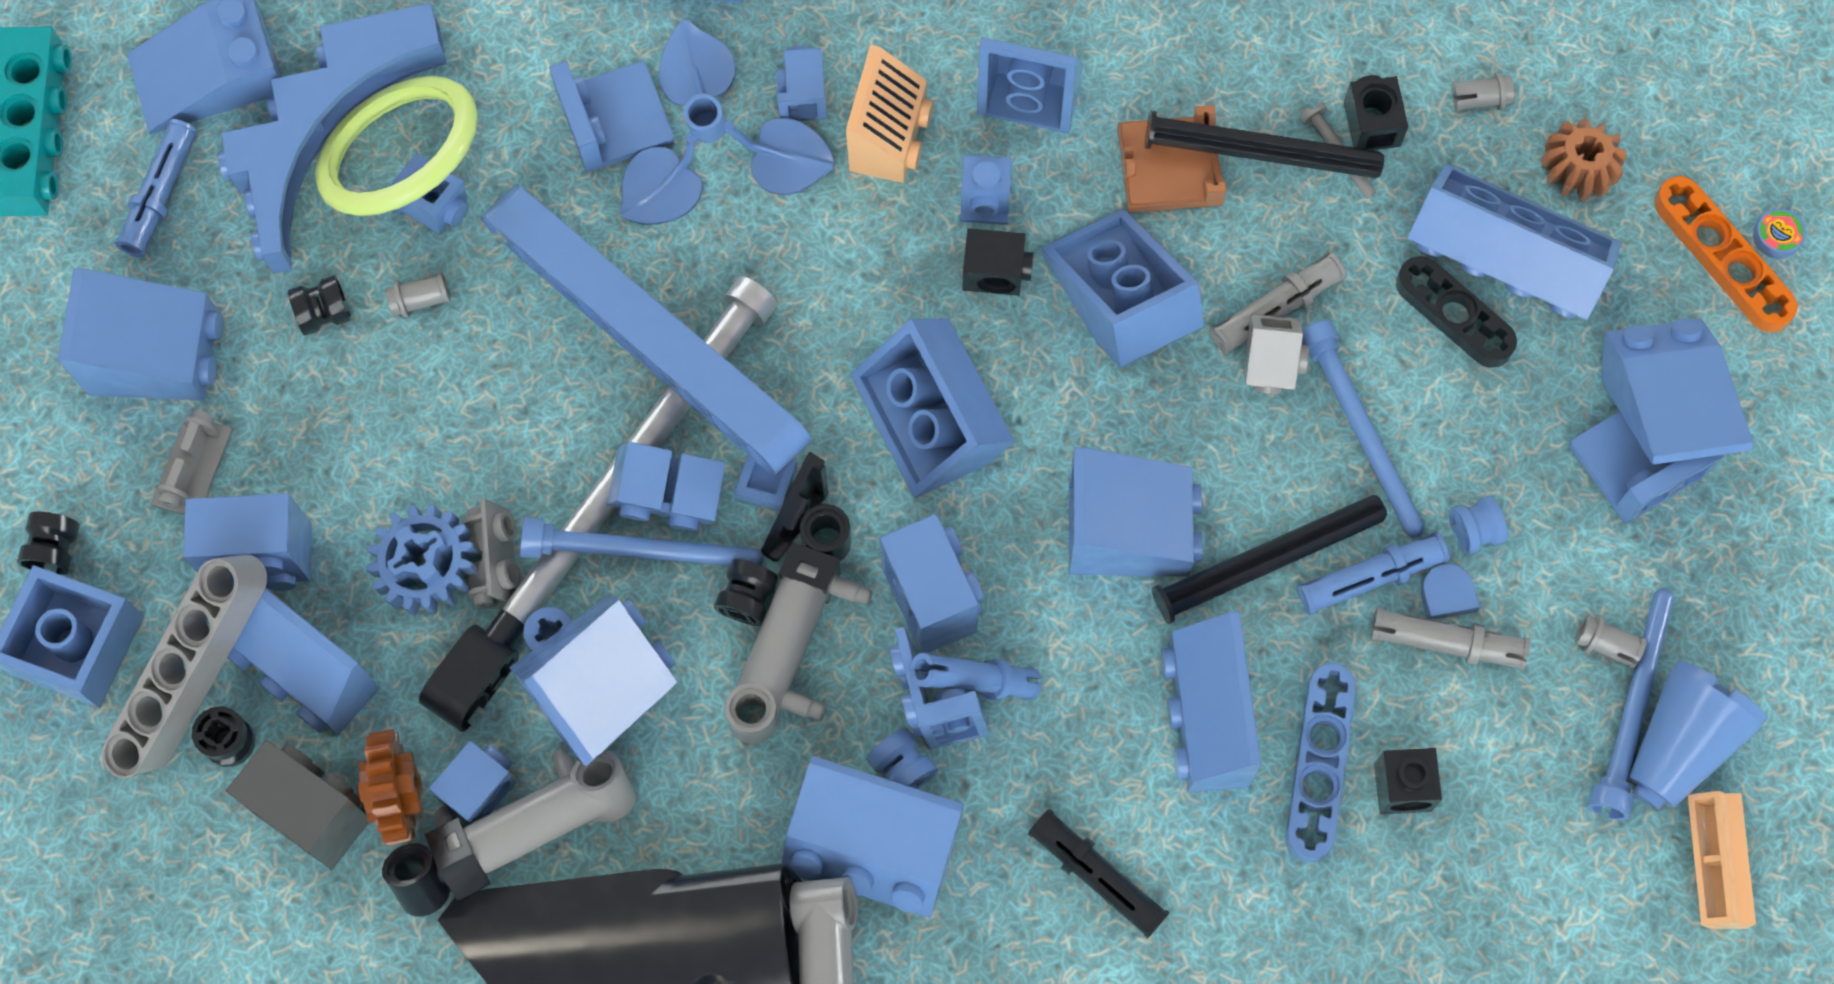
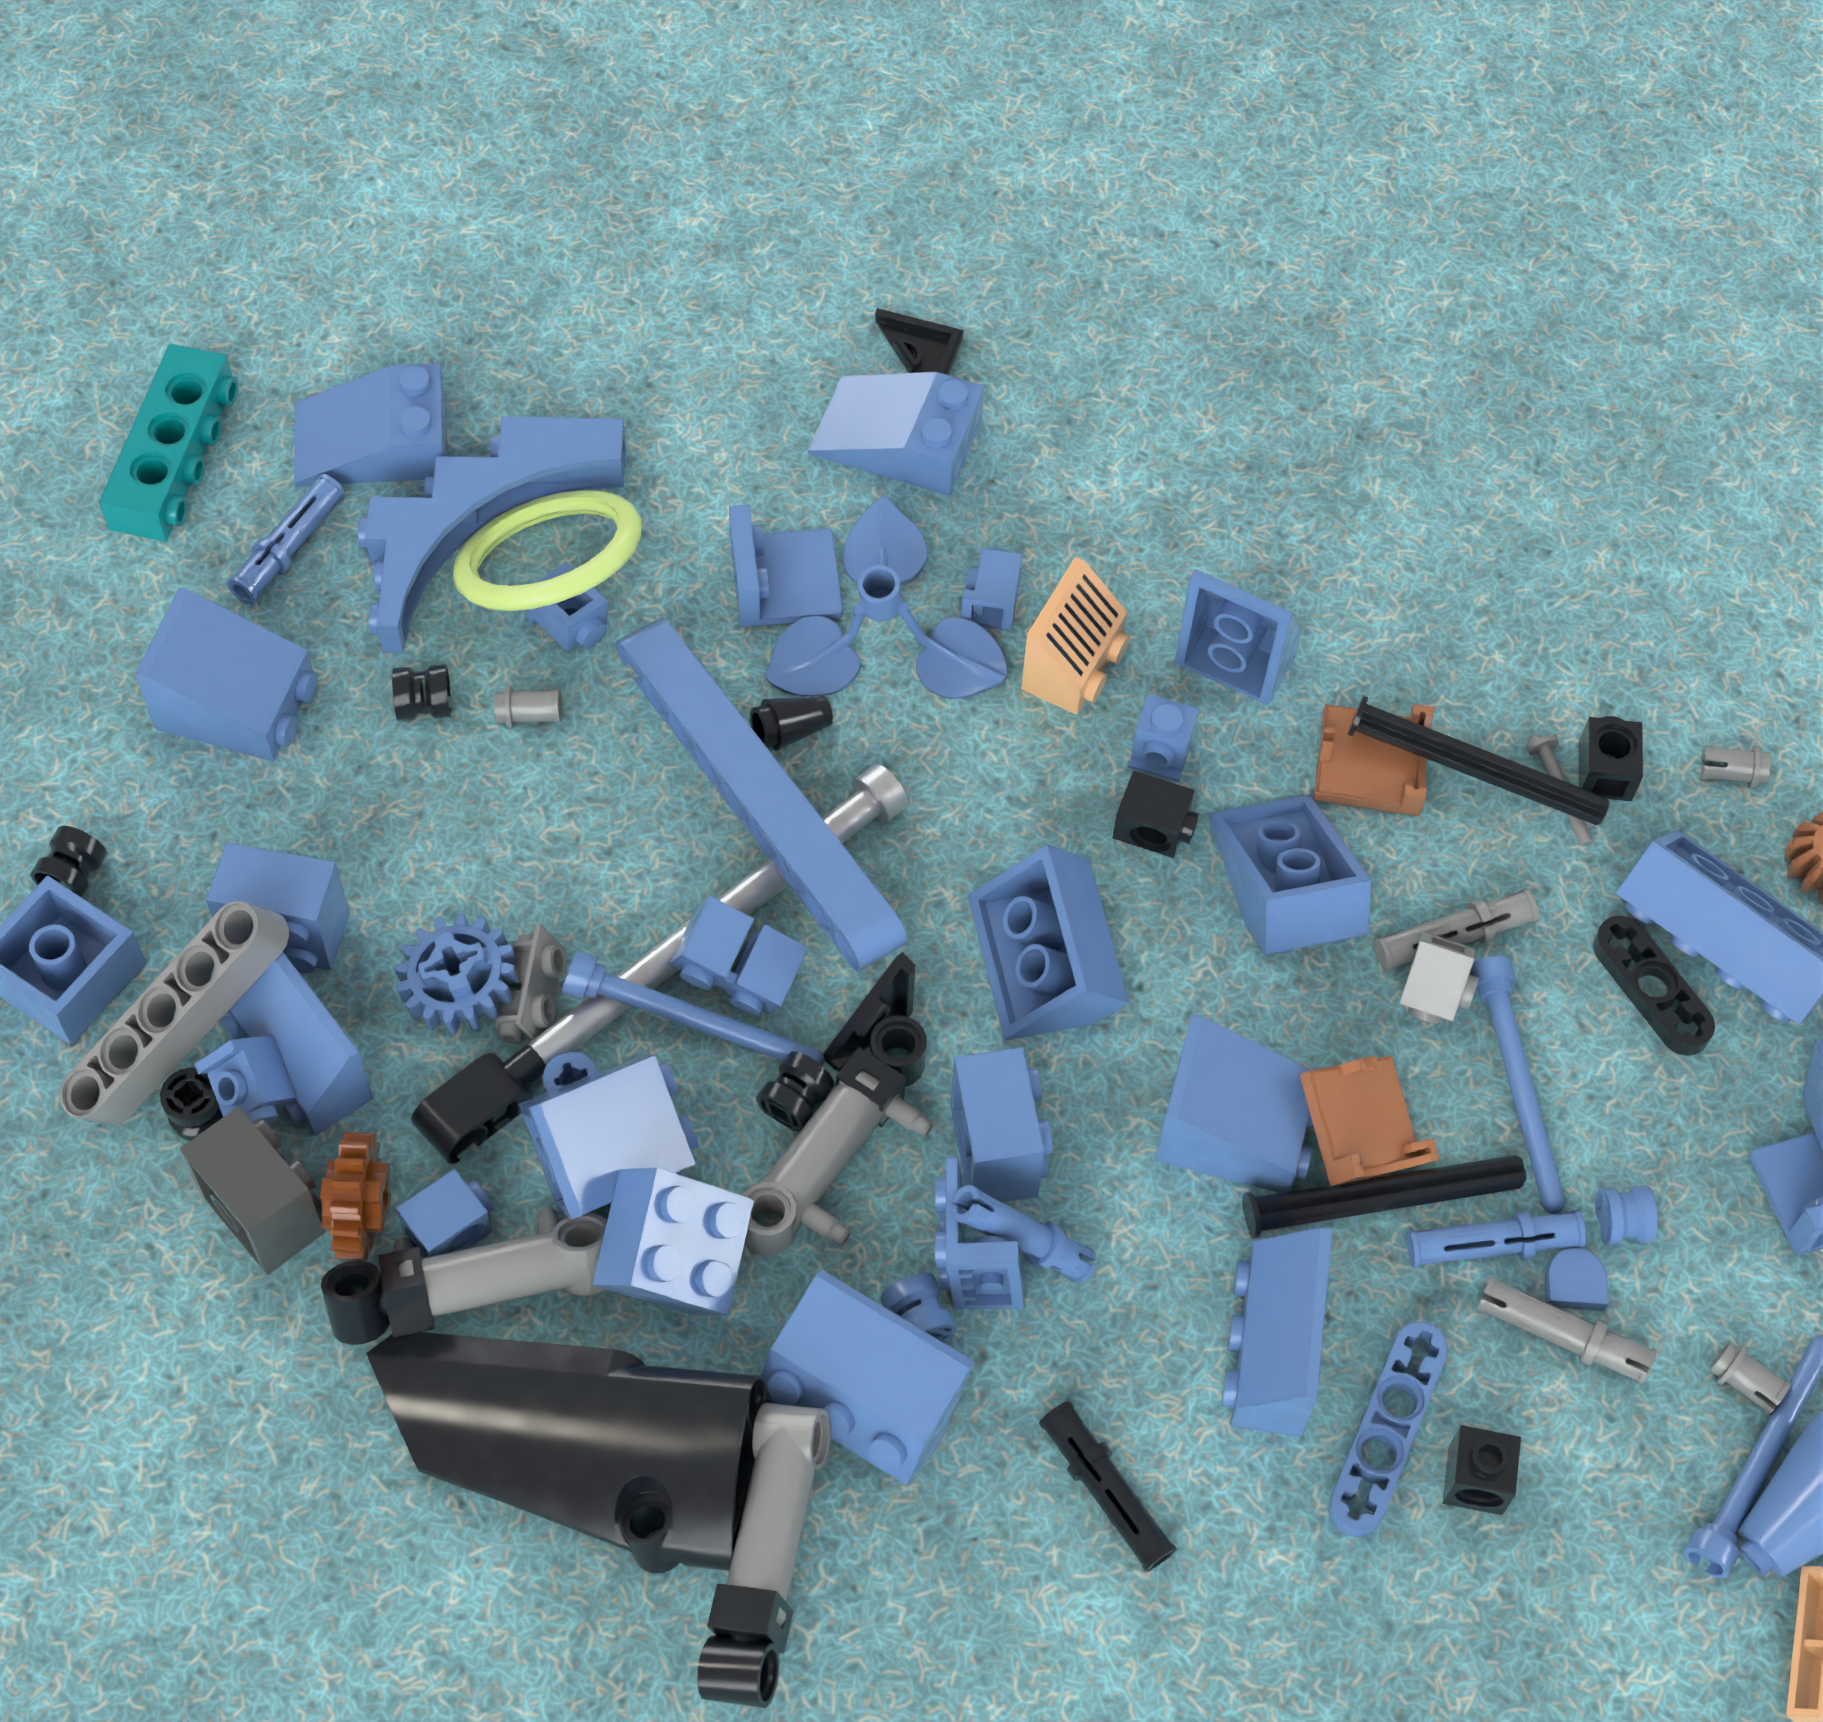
camera: 10 degrees right, 10 degrees down
(192, 462) = (244, 816): light grey hinge -> none
(267, 707) = (249, 1076): none -> medium blue brick
(652, 251) = (787, 720): none -> black cone
(677, 760) = (673, 1241): none -> brick
(761, 487) = (842, 985): medium blue plate -> none
(1240, 500) = (1363, 1121): none -> nougat piece

